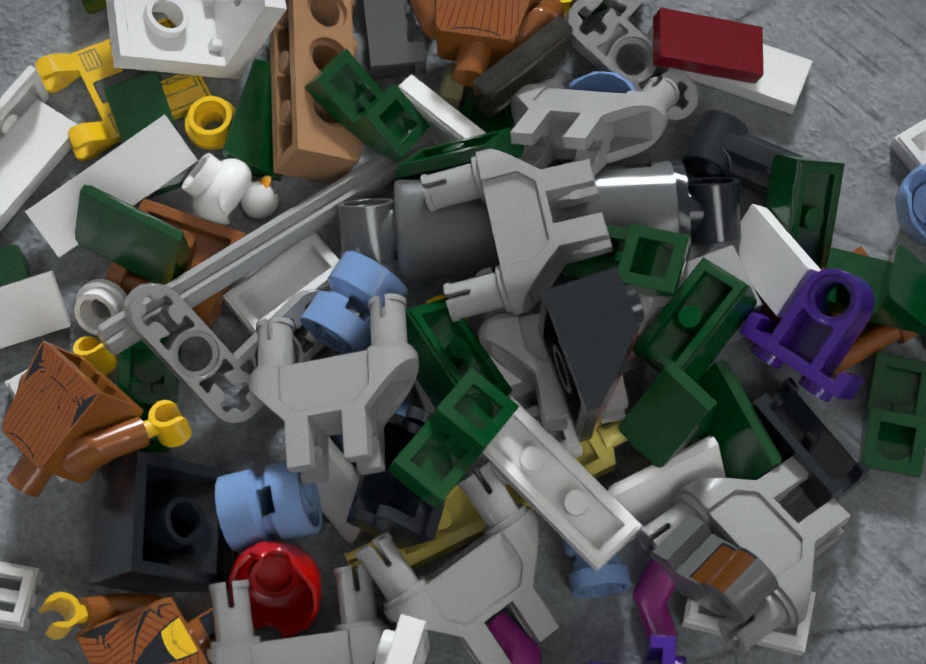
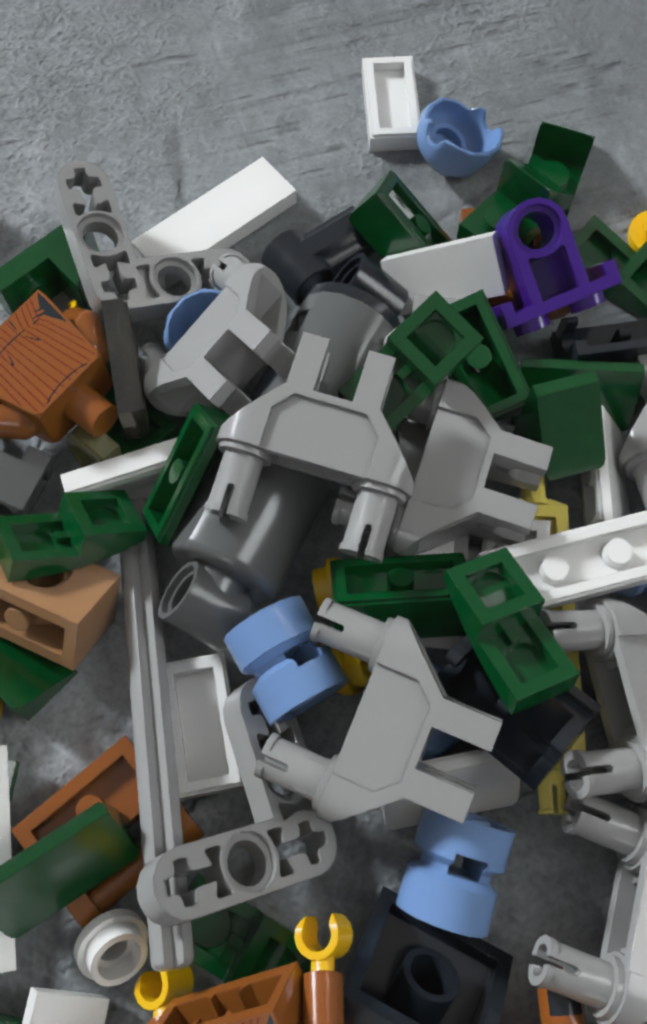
camera: 65 degrees left, 0 degrees up
(223, 184) = (55, 731): white animal -> none
(282, 587) = (552, 896): red hair -> none
(588, 341) = (524, 433): black slope -> none
(708, 45) = (202, 215): dark red tile -> none

